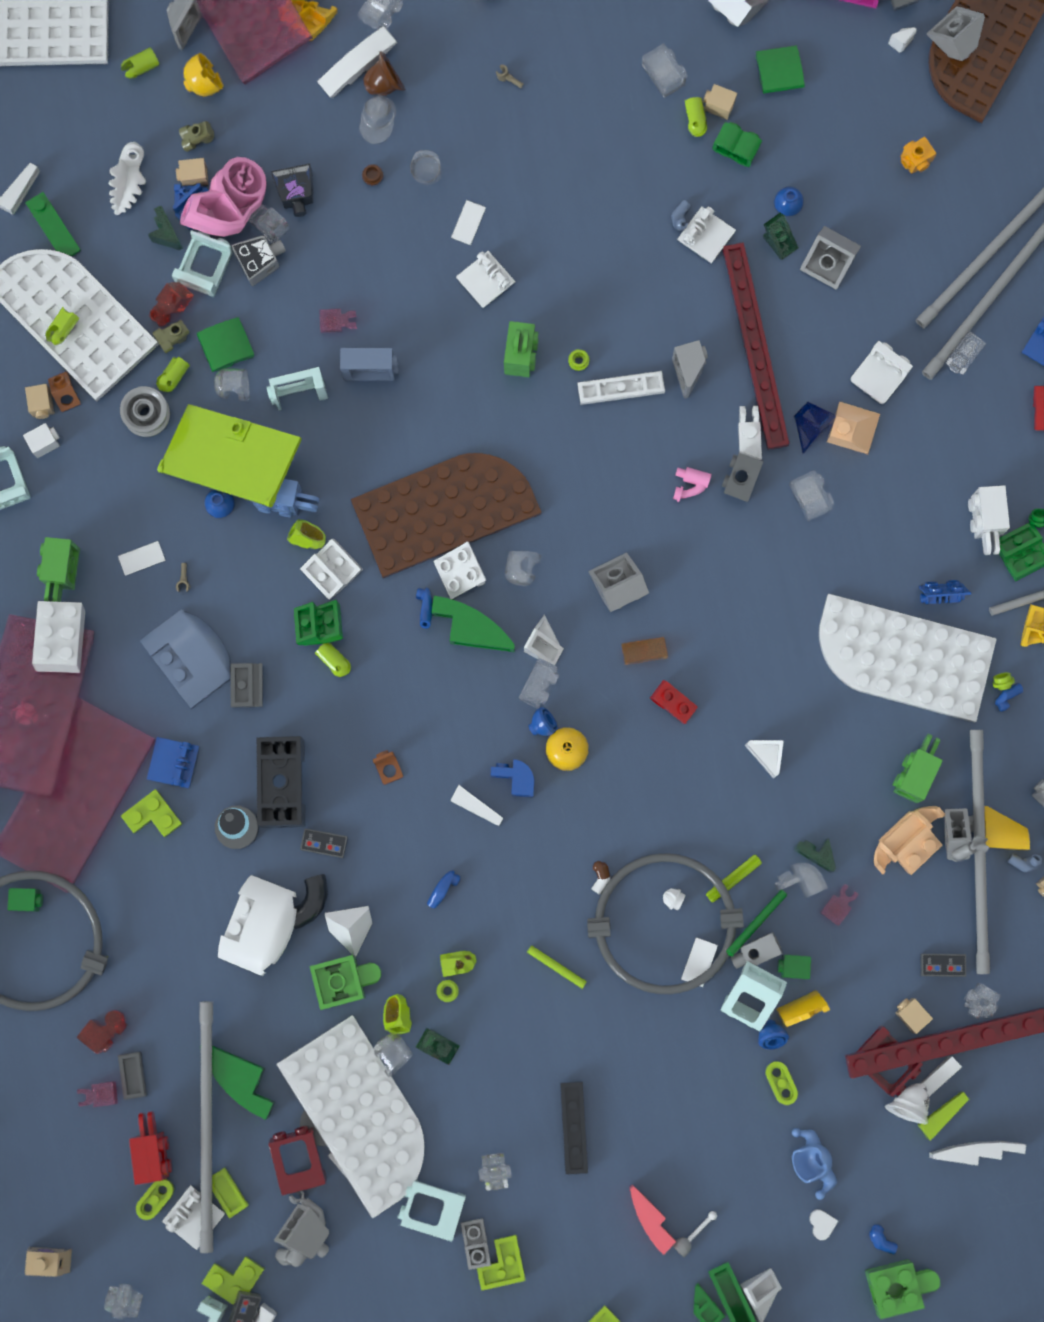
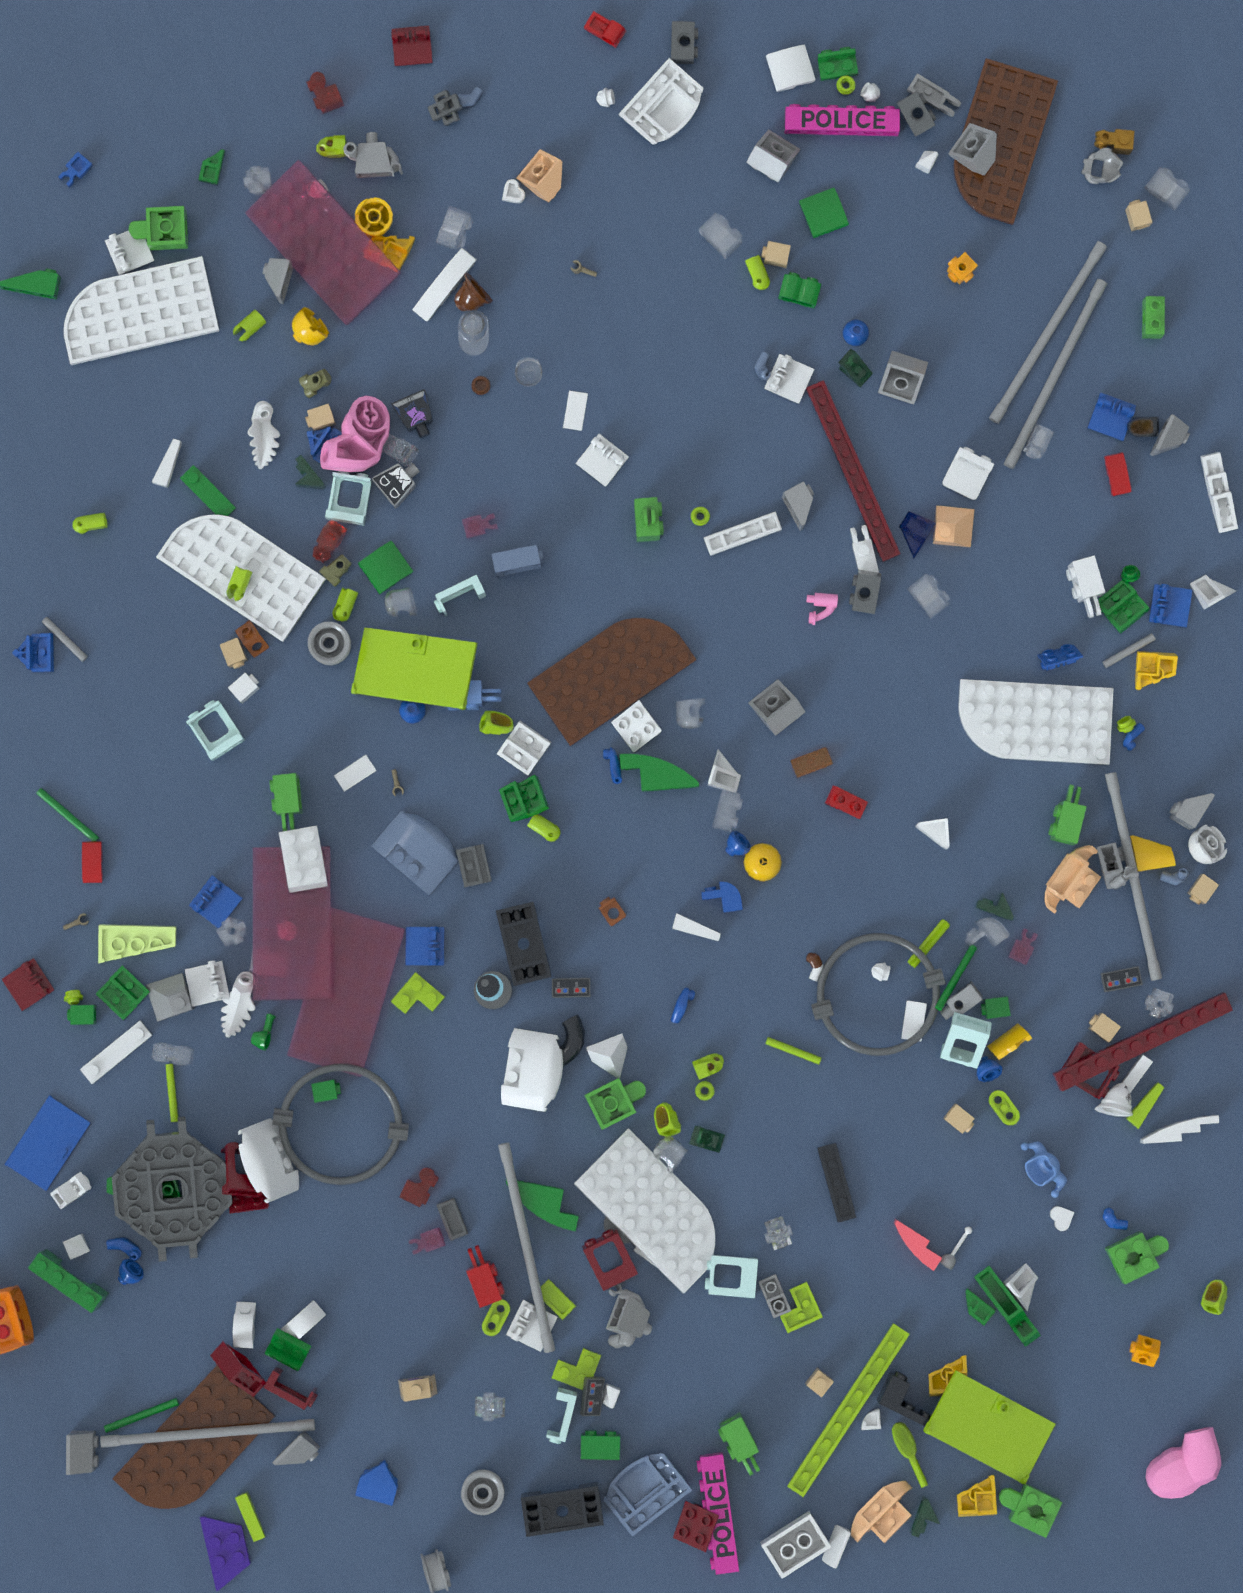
camera: 15 degrees left, 5 degrees up
(728, 1085) = (959, 1119): none -> tan brick

